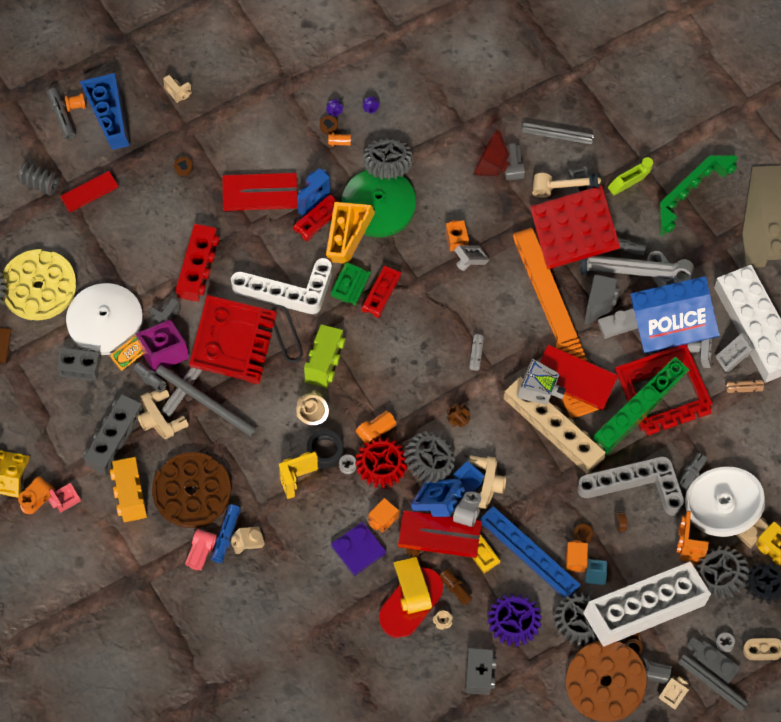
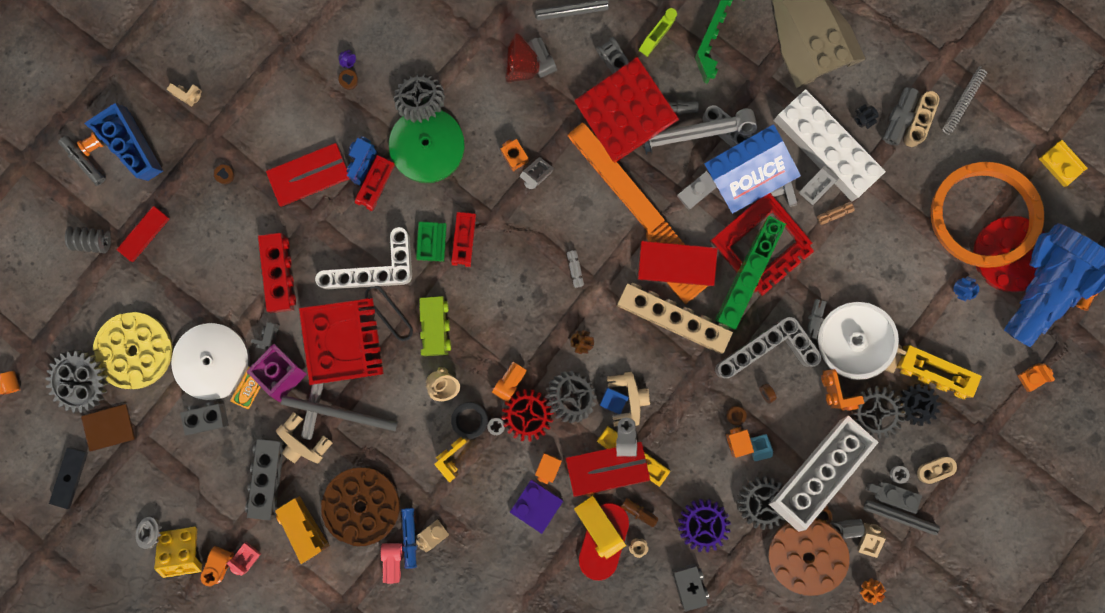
camera: 20 degrees left, 20 degrees up
(149, 377) = (277, 409): dark grey pin -> none
(339, 139) = (364, 92): orange pin -> none
(347, 230) = (408, 190): light orange wedge -> none
(371, 104) = (381, 43): dark purple plate -> none
(439, 497) = (594, 434): blue plate -> none
(529, 553) = (695, 454): blue plate -> none
(540, 384) = (650, 287): light grey torso -> none
(543, 183) = (579, 71): tan piece -> none
(602, 297) = (674, 173): dark grey slope -> none

